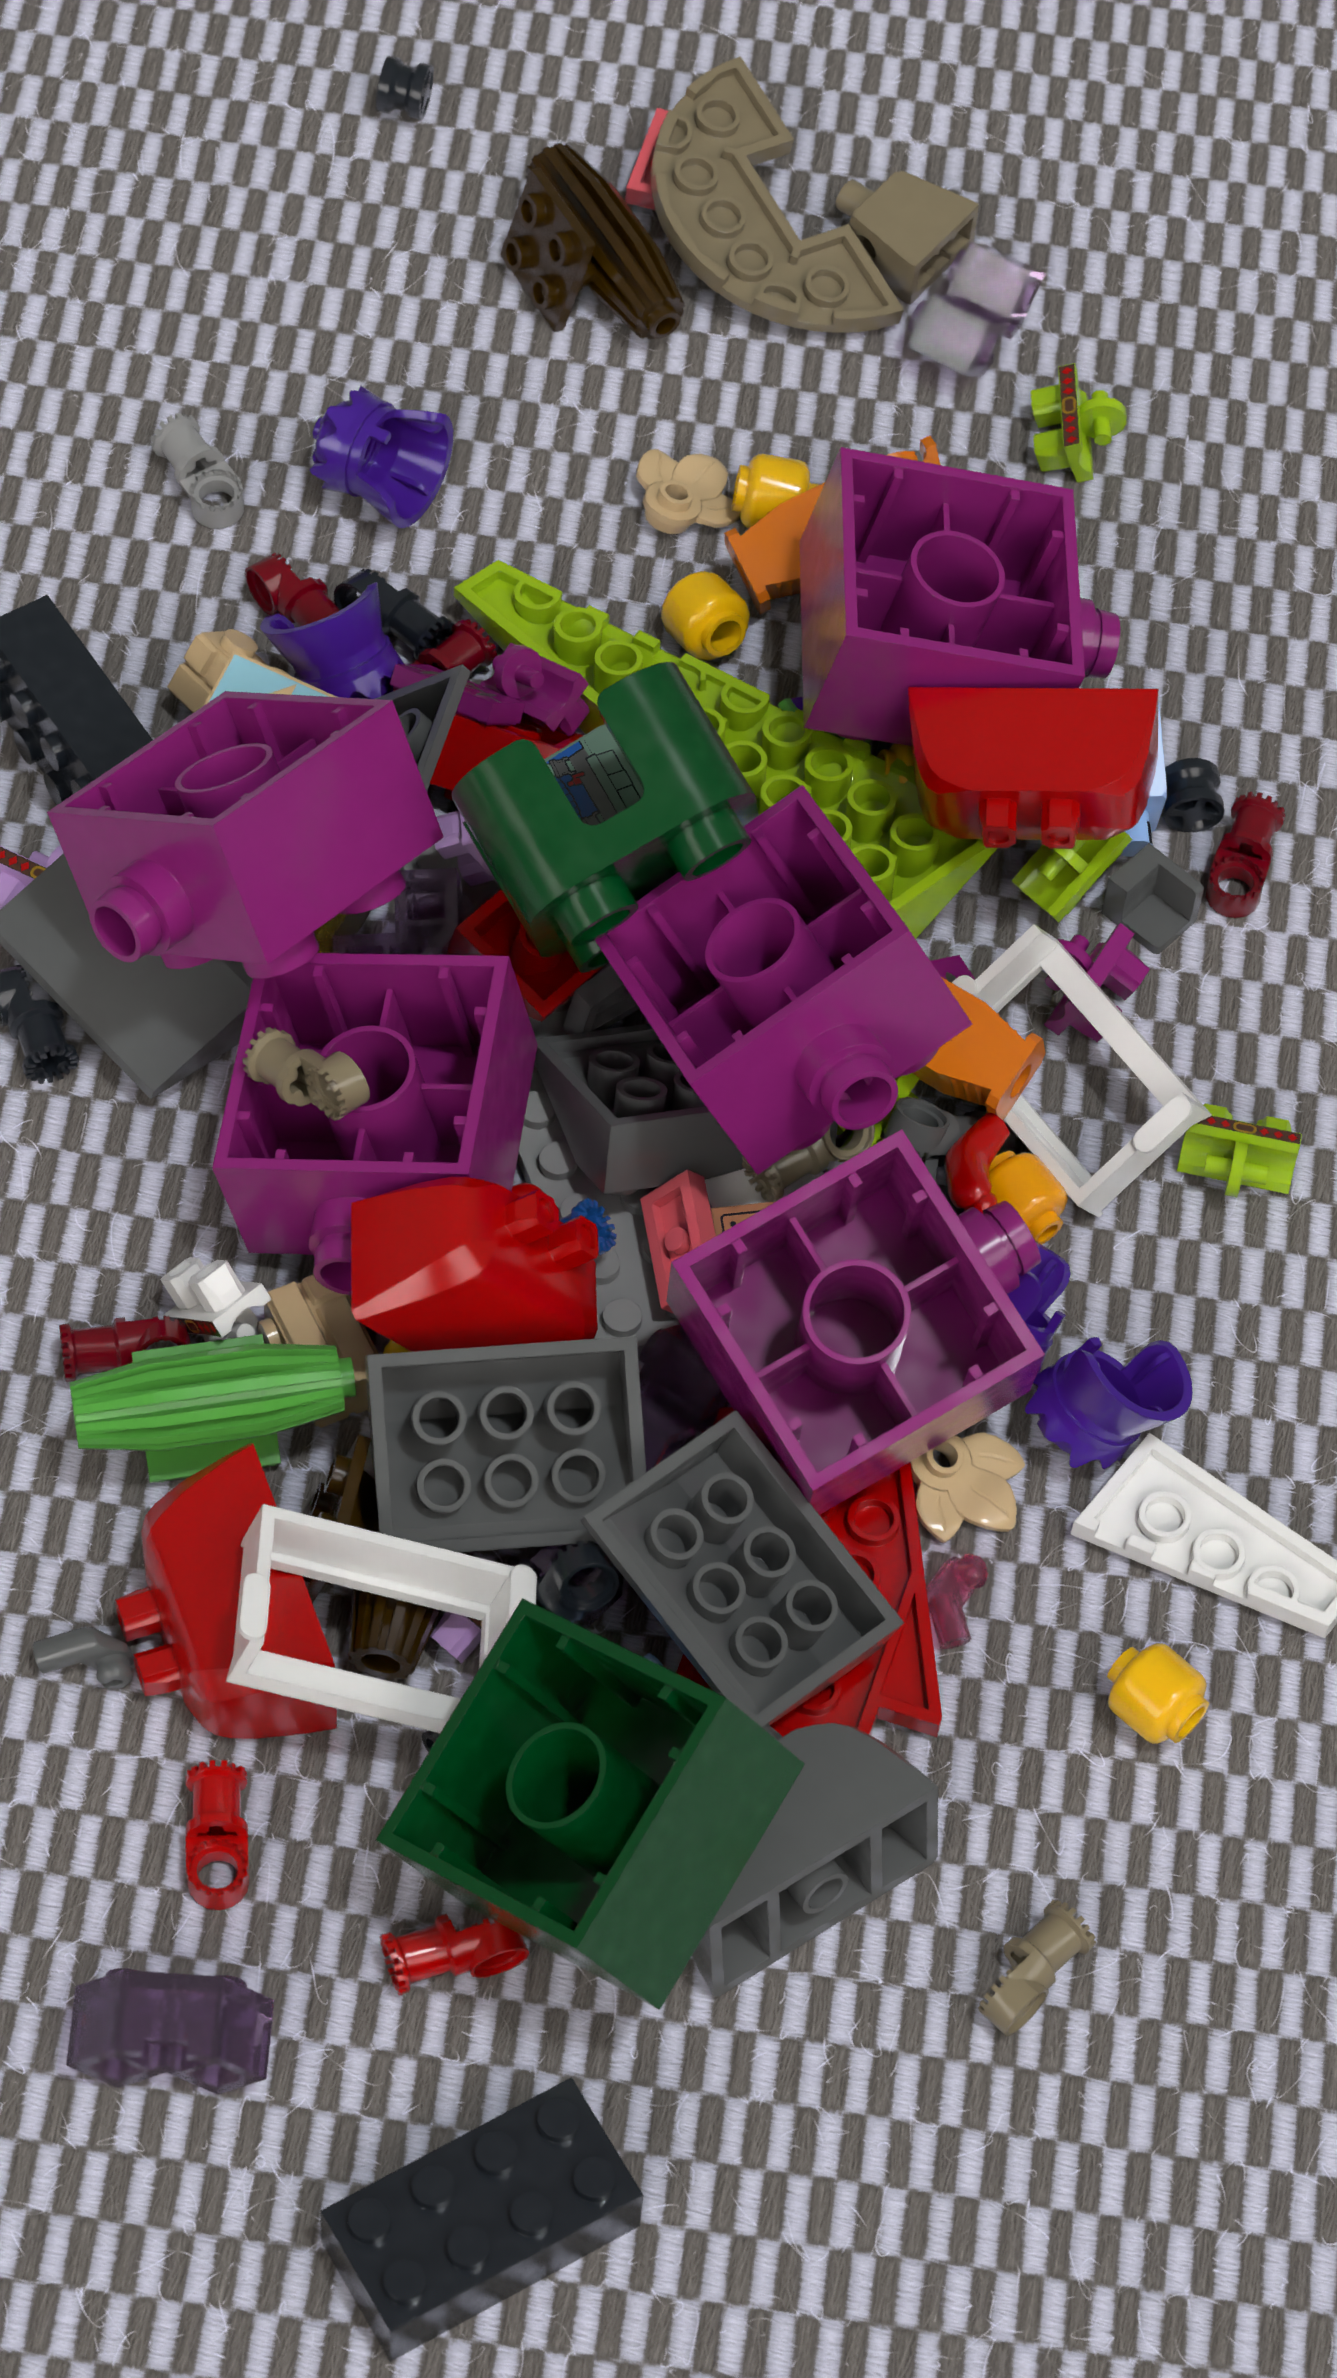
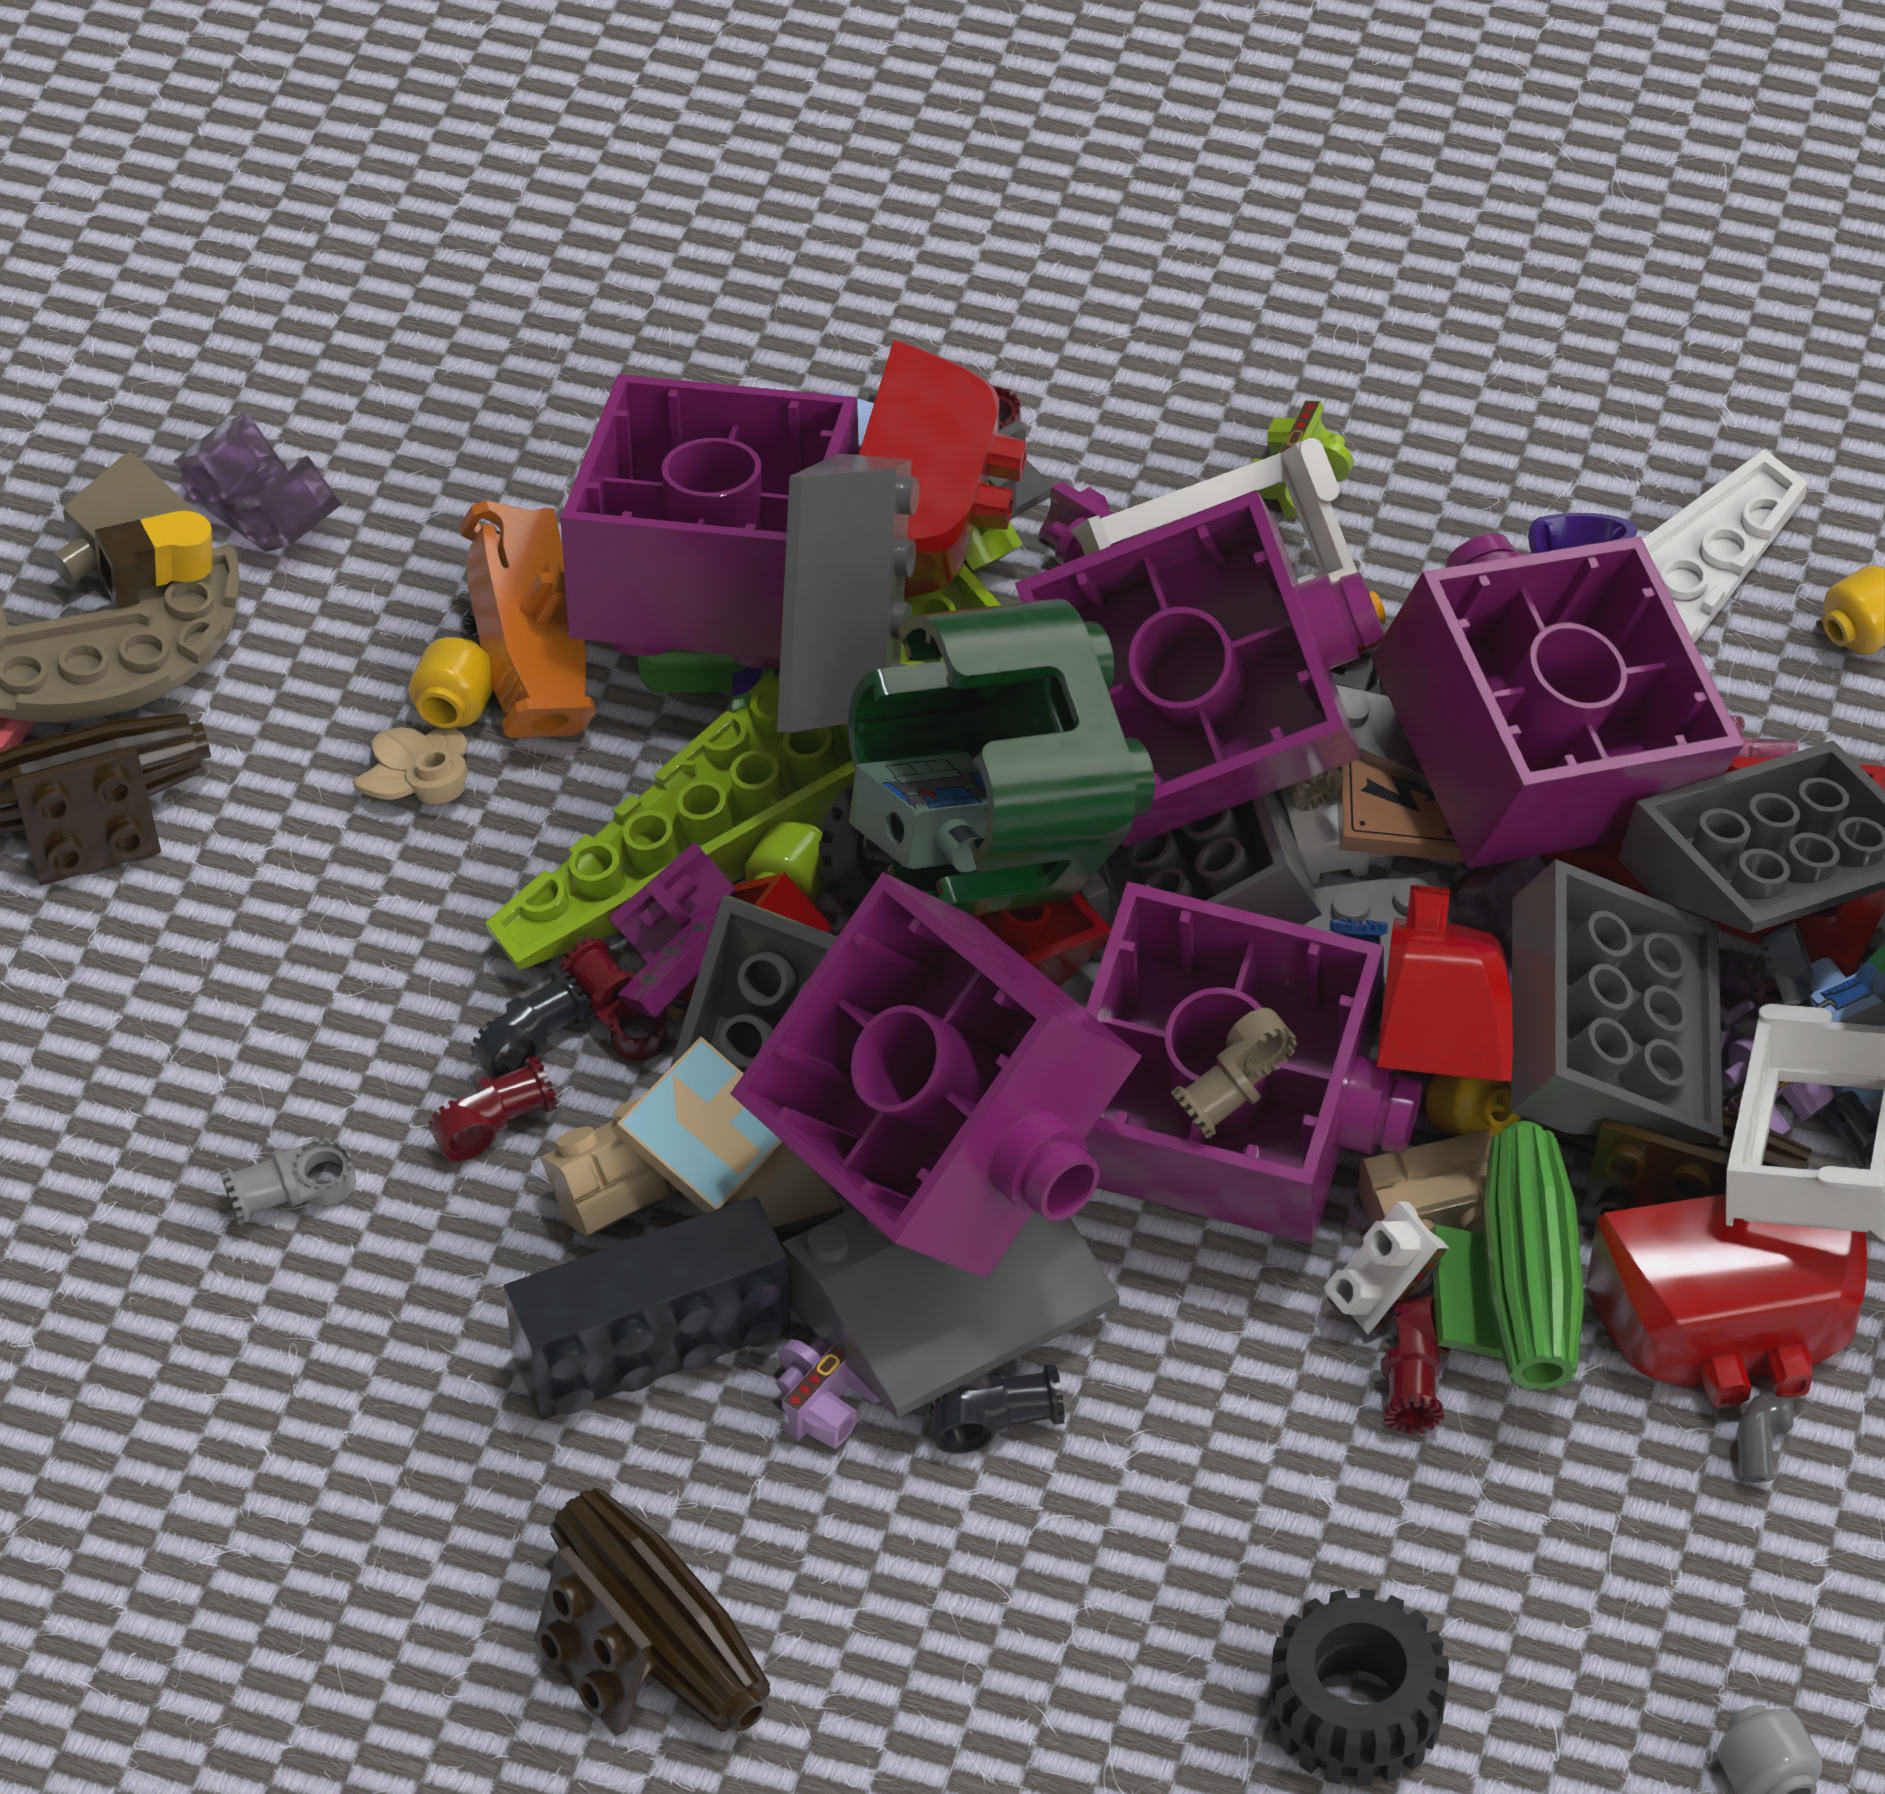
camera: 75 degrees left, 5 degrees down
(340, 652) = (601, 1055): dark purple hat -> none
(383, 454) = (321, 1007): dark purple hat -> none
(675, 1223) = (1370, 867): coral plate -> none
(705, 615) = (593, 763): yellow head -> none
(826, 680) = (843, 583): none -> dark grey slope
(850, 235) = (153, 553): none -> leg
(1080, 421) = (416, 428): lime hips -> none

